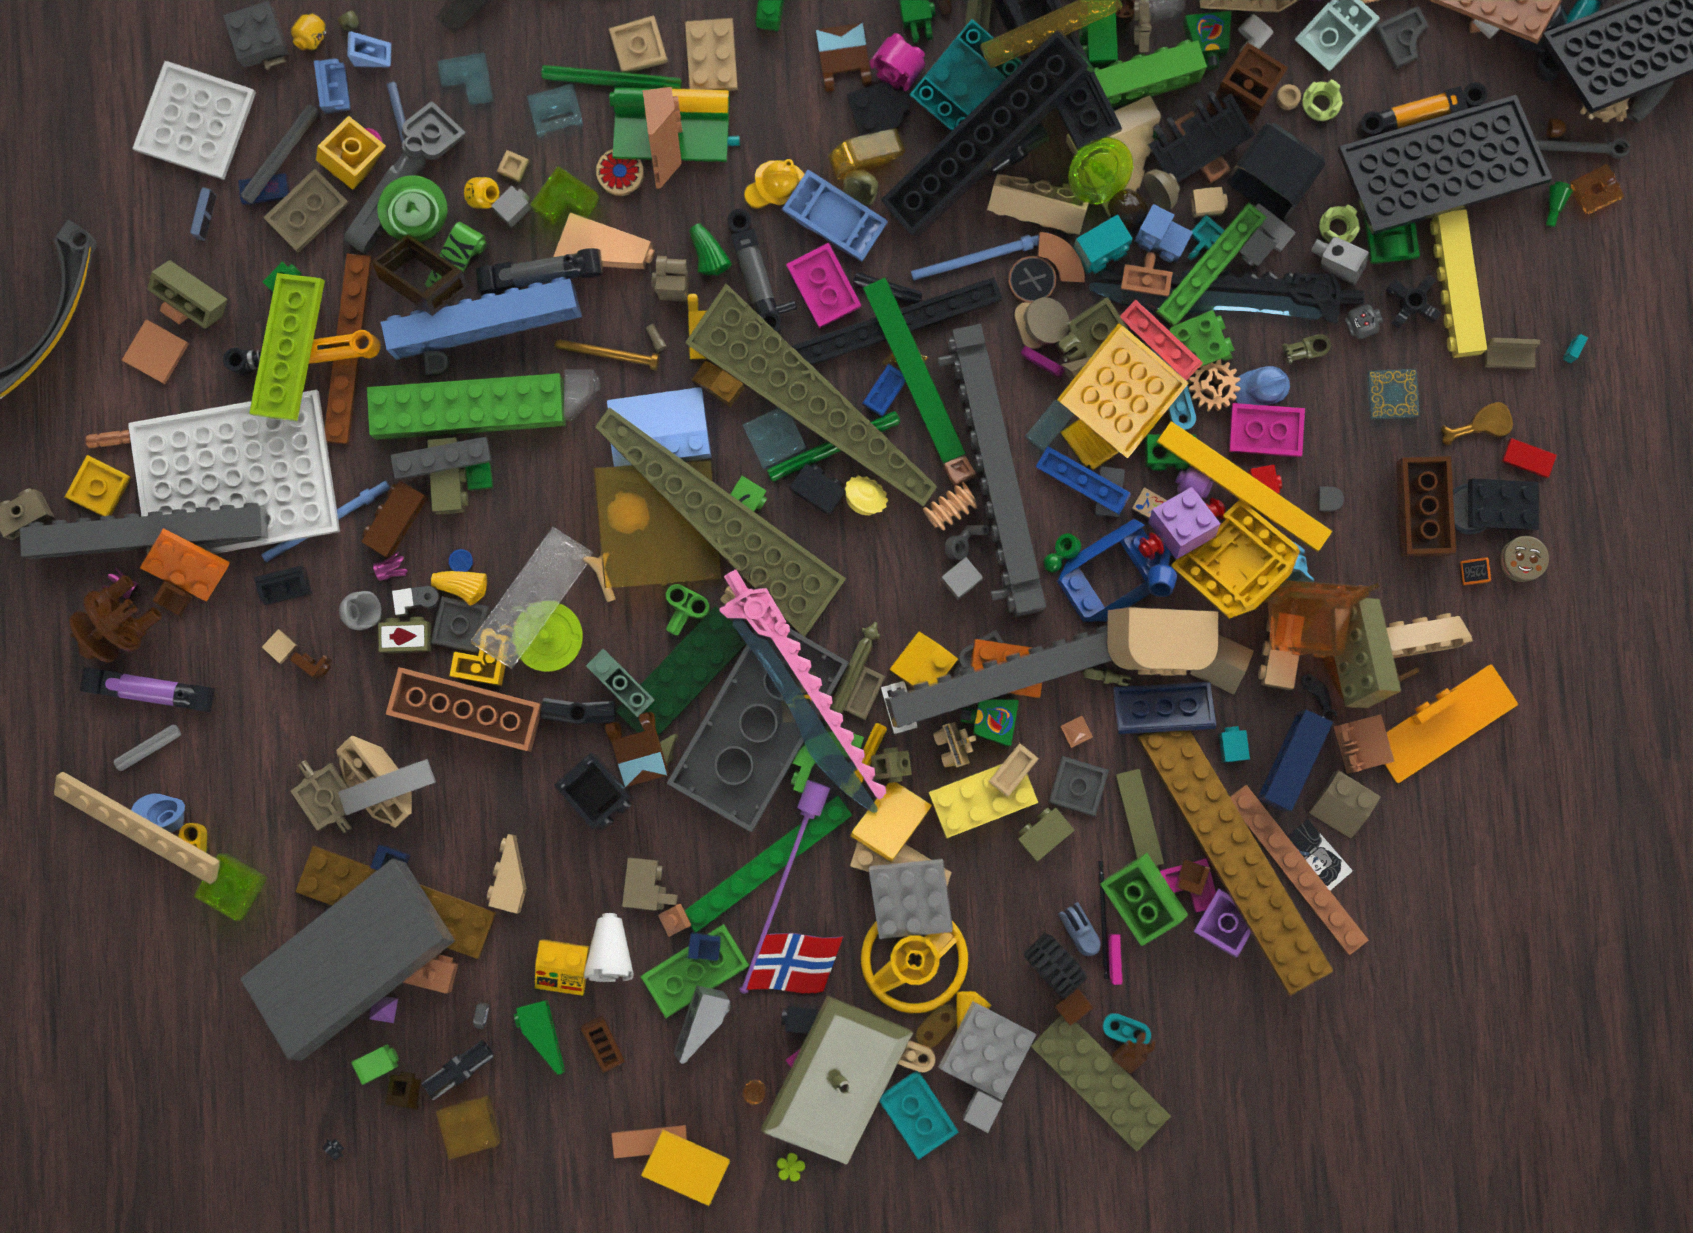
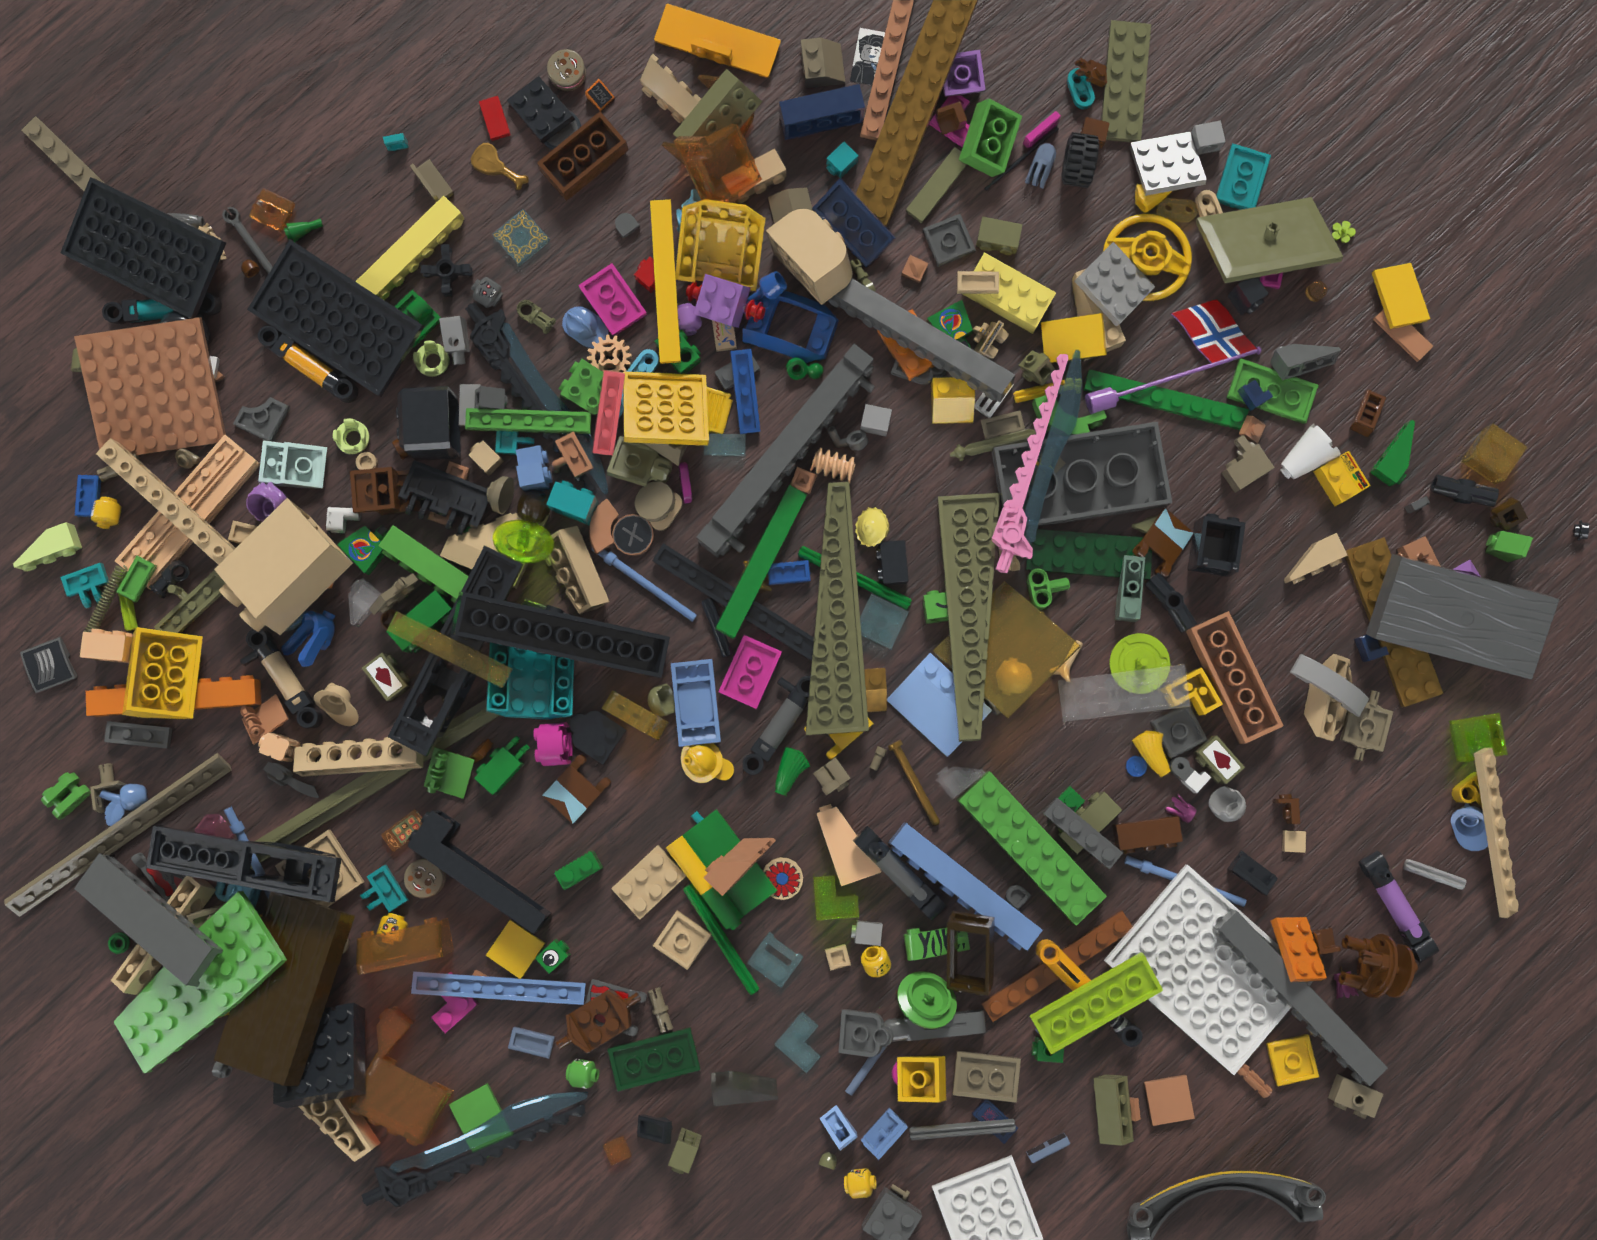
camera: 135 degrees left, 0 degrees up
(1320, 690) = (759, 134): black arm -> none
(1364, 744) = (773, 79): nougat hinge -> none

